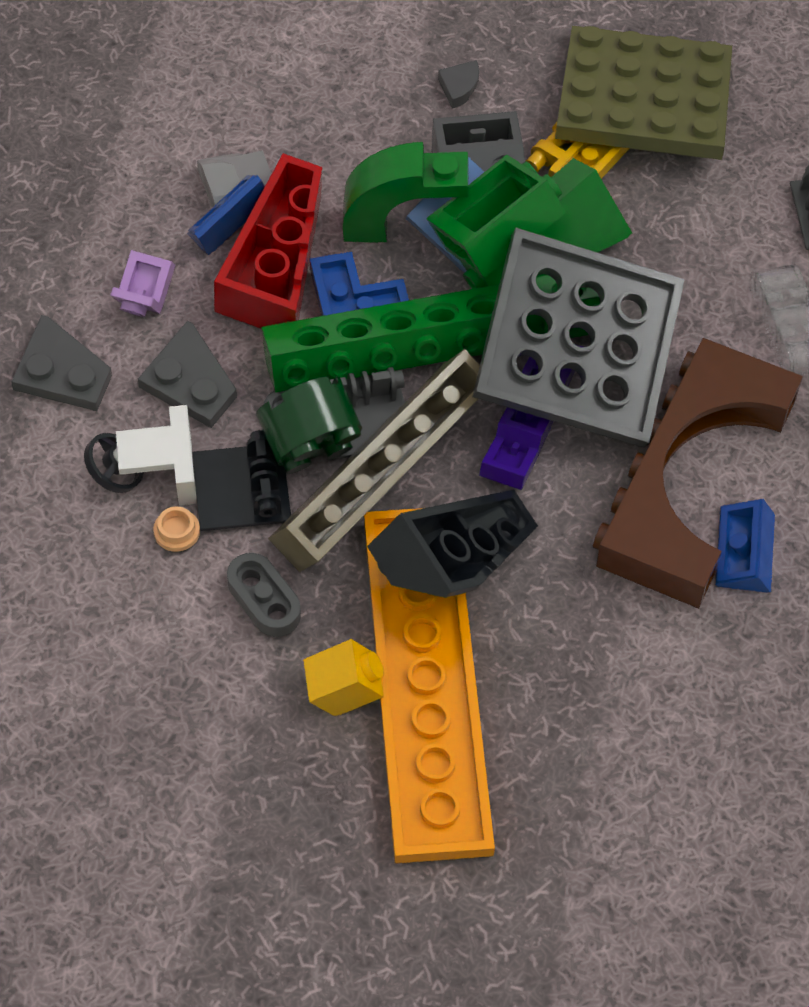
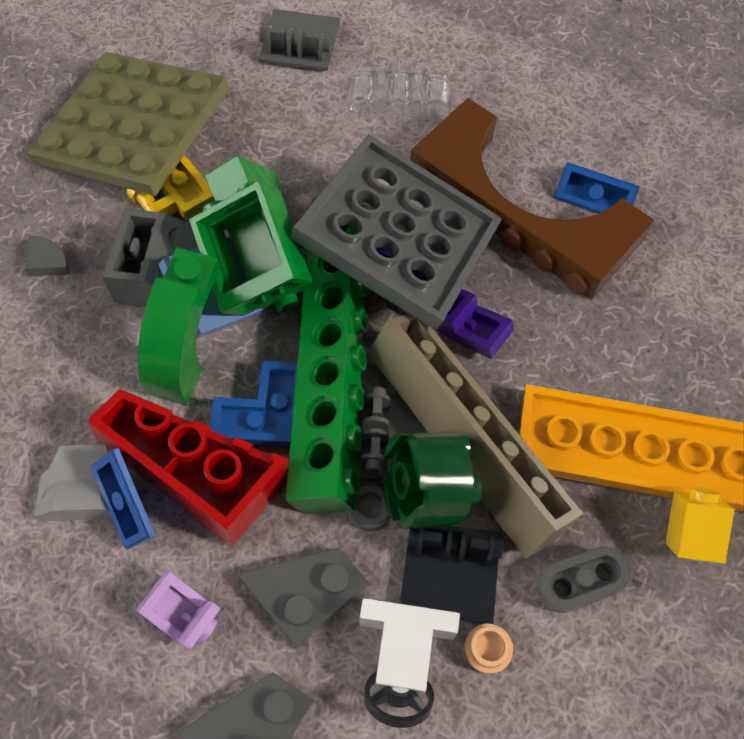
camera: 75 degrees left, 5 degrees up
(452, 544) = (592, 398): black wedge -> none

